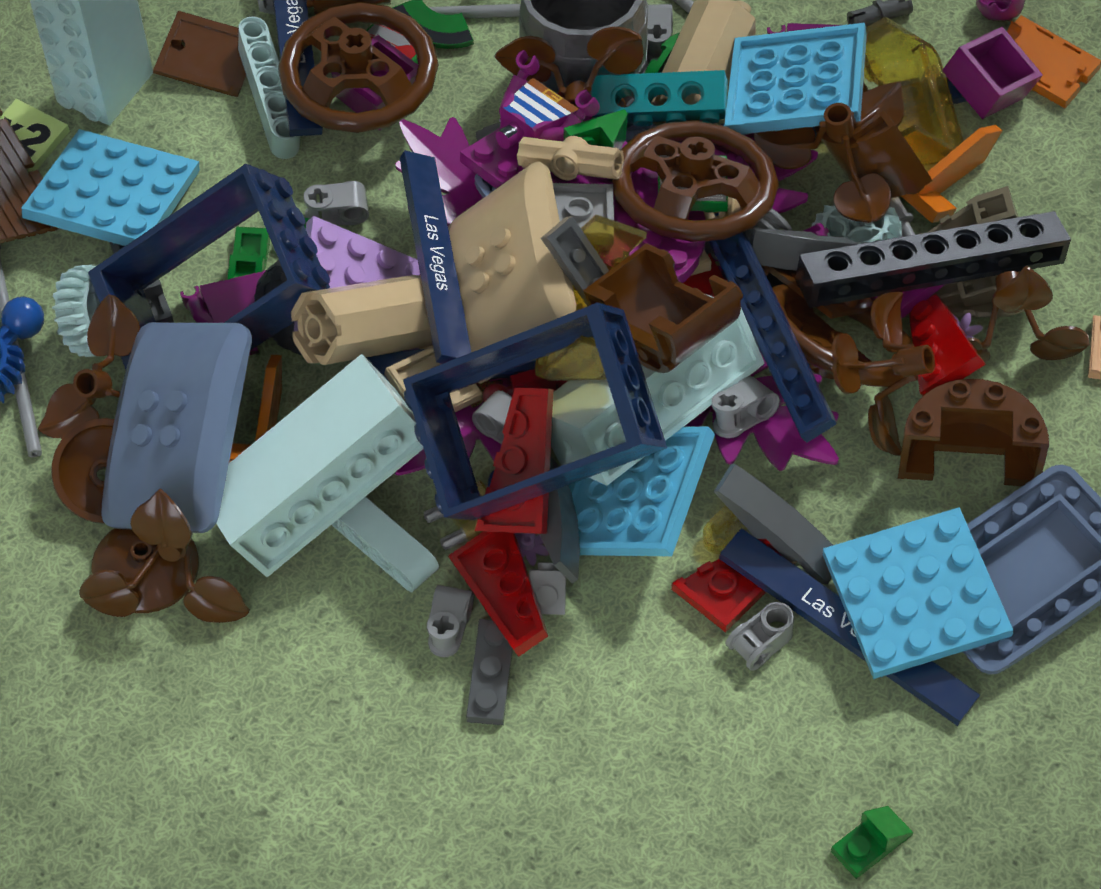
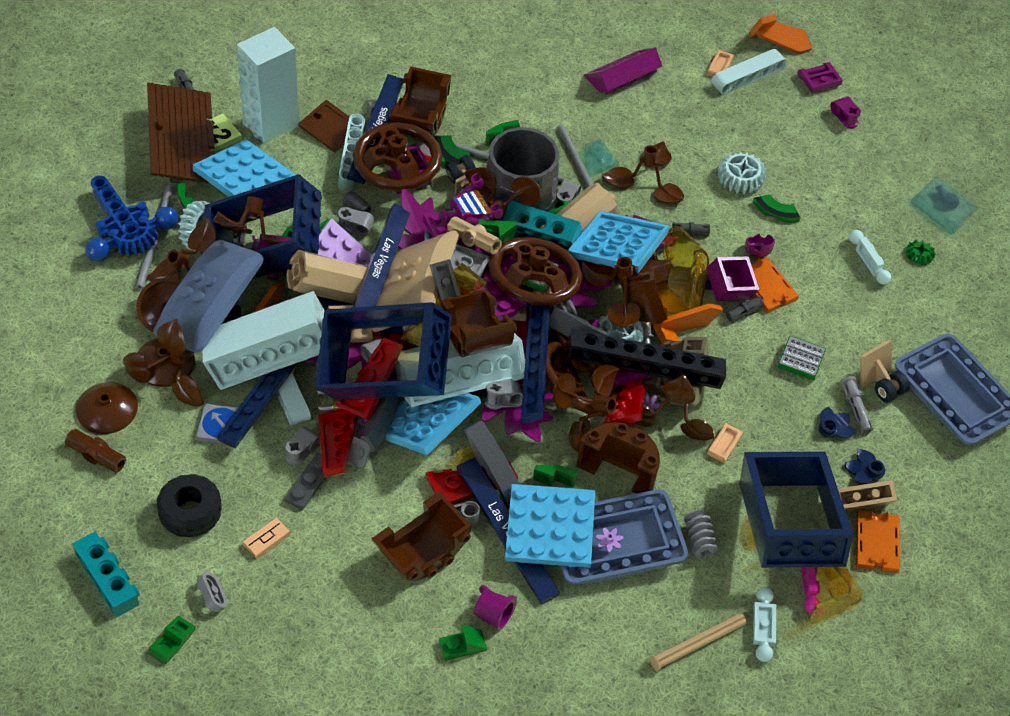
camera: 15 degrees right, 5 degrees down
(39, 281) = (183, 200): none -> green slope
(92, 699) = (107, 415): none -> reddish brown dish
(114, 762) = (95, 450): none -> reddish brown piece
(186, 254) = (252, 210): none -> reddish brown plant
(296, 635) = (213, 421): none -> tile
(321, 171) = (356, 202): none -> dark grey piece
(328, 823) = (189, 521): none -> black tyre
(339, 586) = (253, 406): none -> dark blue tile
(471, 795) = (266, 538): none -> light nougat tile
(473, 49) = (457, 175): none -> plate
(735, 693) = (426, 541): none -> reddish brown cylinder
(864, 508) = (549, 473): none -> green slope
(893, 761) = (494, 607): none -> magenta hat
(1020, 578) = (609, 539): none -> lavender plant
(1029, 114) = (744, 308): none -> dark grey pin

